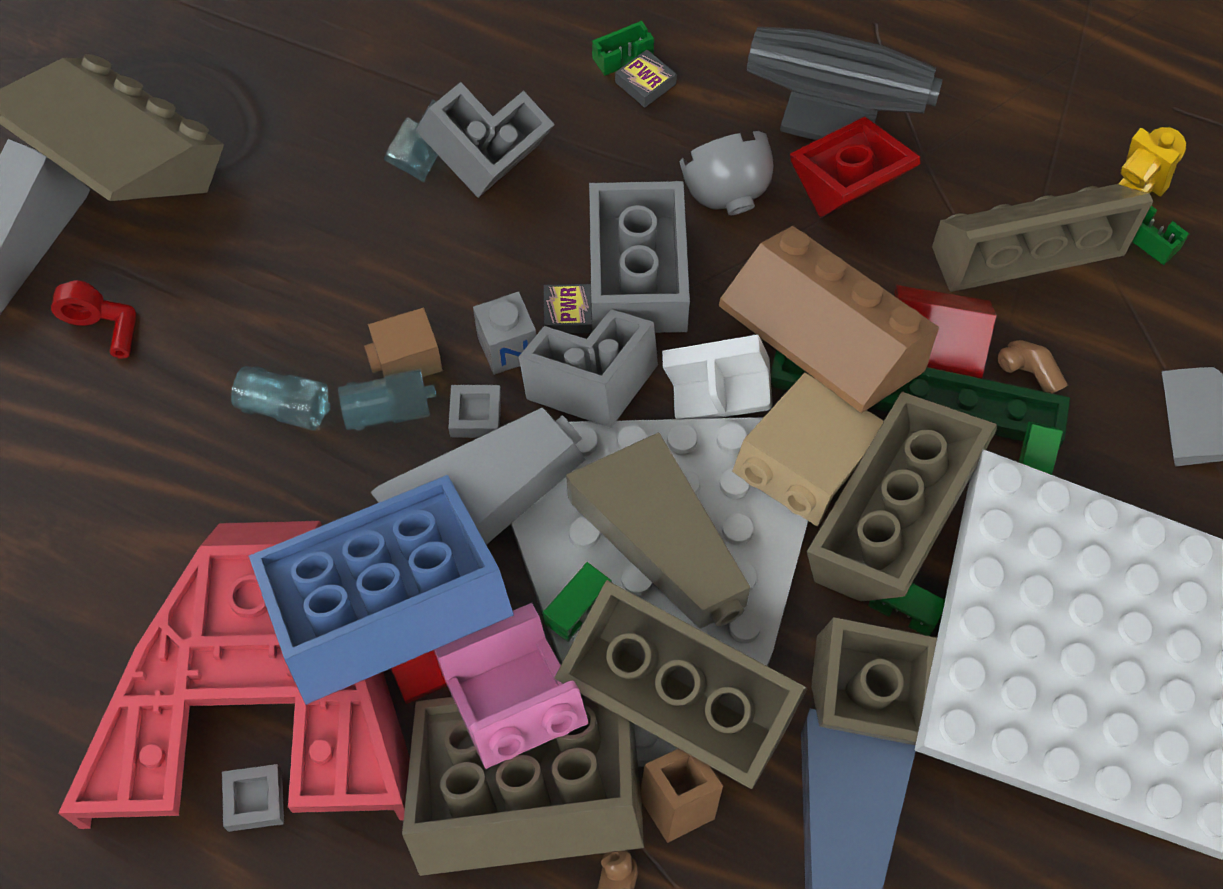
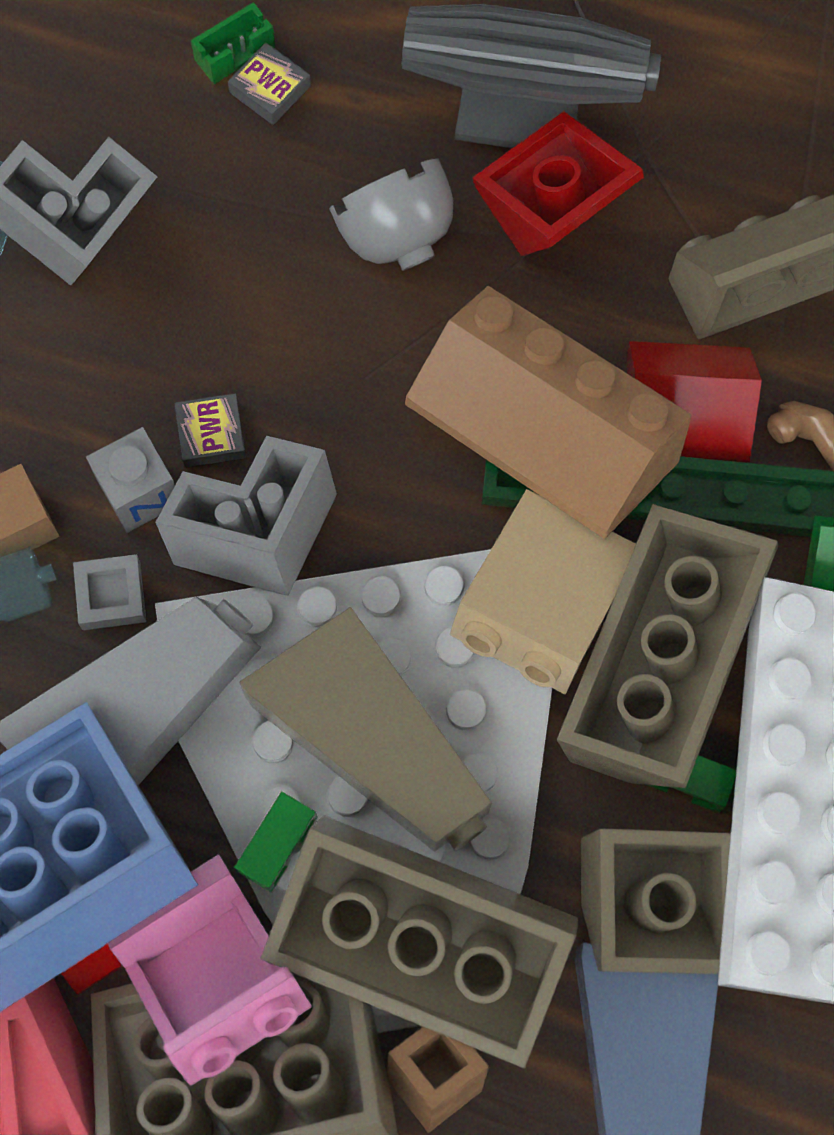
camera: 10 degrees left, 10 degrees up
(639, 252) = (292, 349): light grey brick -> none
(720, 378) = (419, 510): white panel -> none

